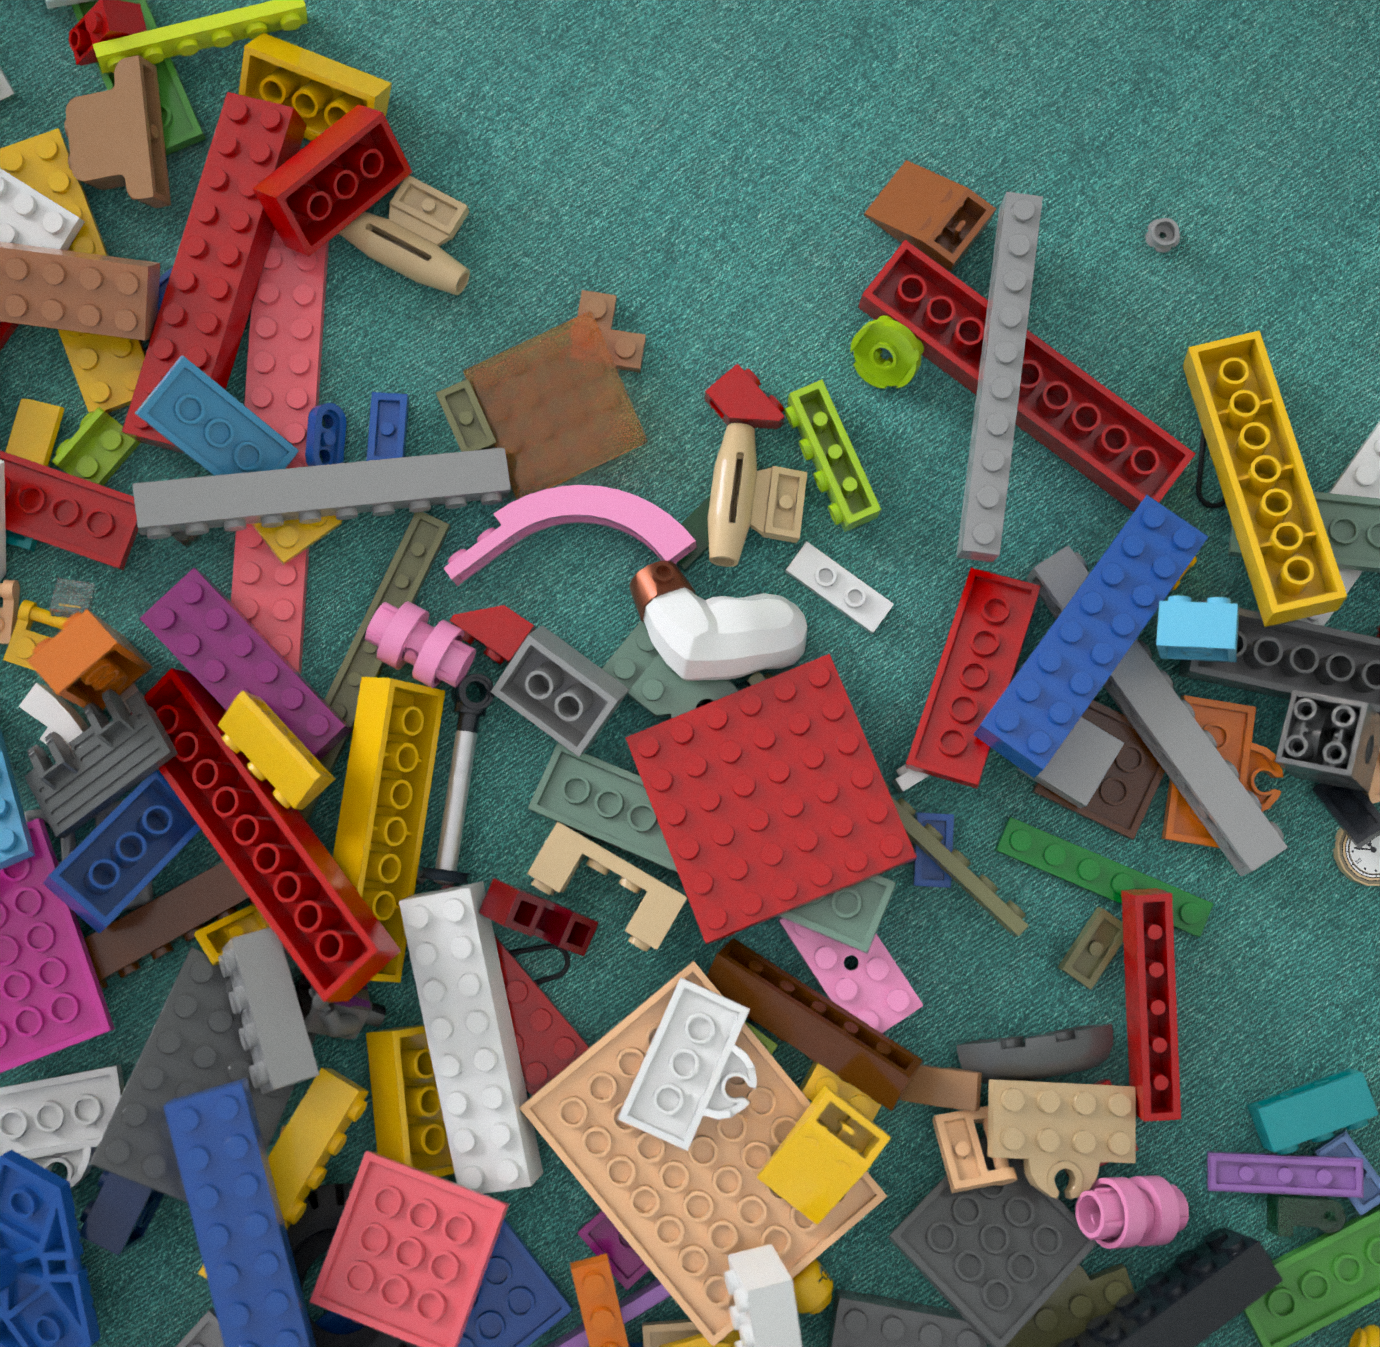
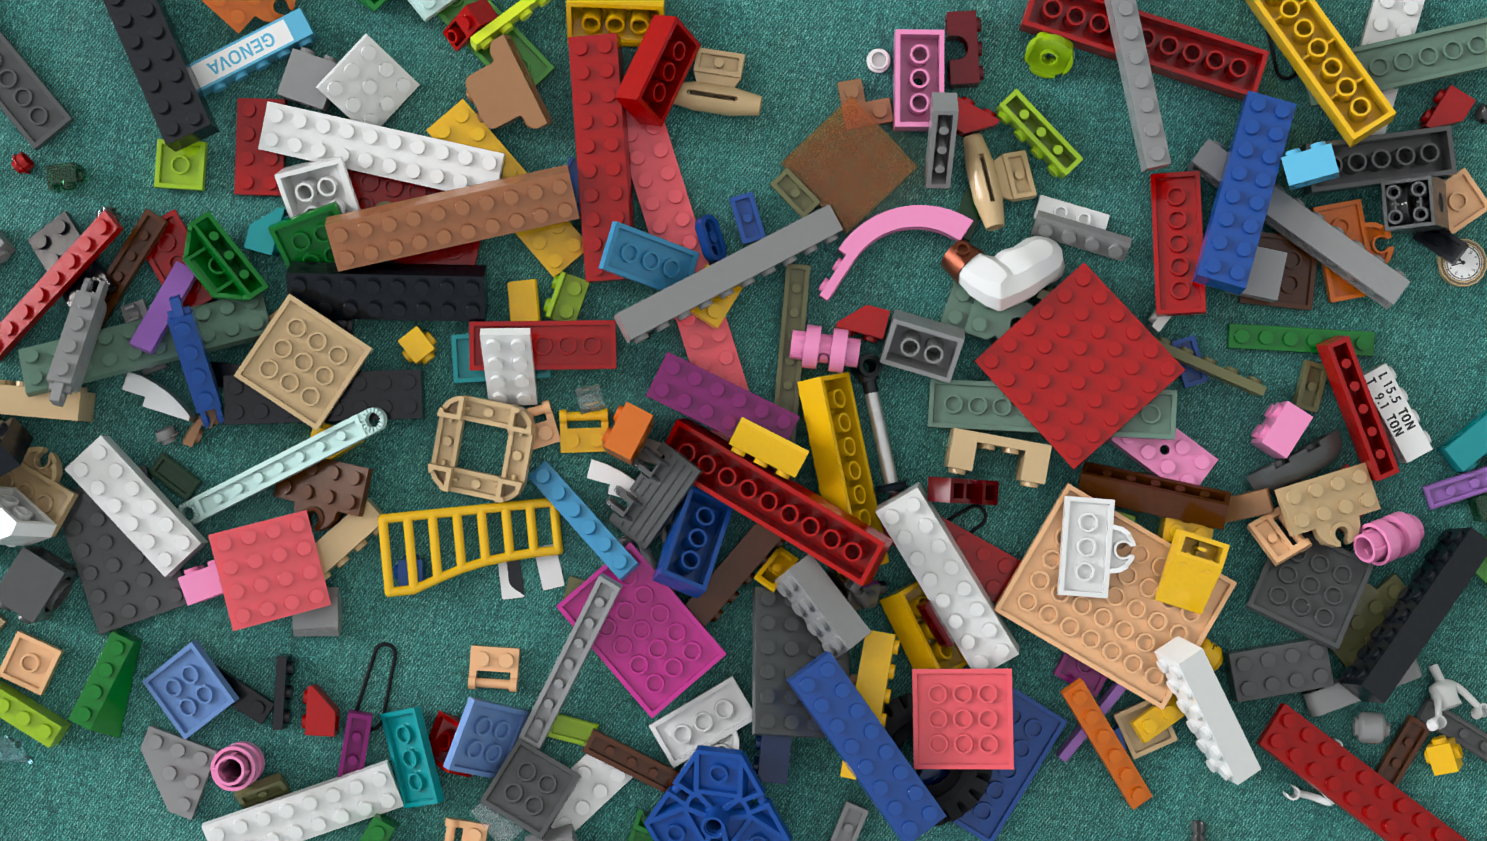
camera: 20 degrees left, 5 degrees up
(428, 1096) = (935, 623): none -> dark red slope
(649, 281) = (878, 60): none -> white plate
(688, 410) = (941, 139): none -> light grey brick
(703, 292) = (916, 56): none -> bright pink brick
(762, 335) = (963, 27): none -> dark red arch
(843, 618) = (1081, 236): none -> light grey plate
(1029, 994) = (1280, 429): none -> bright pink brick
(1203, 1034) = (1397, 417): none -> white brick

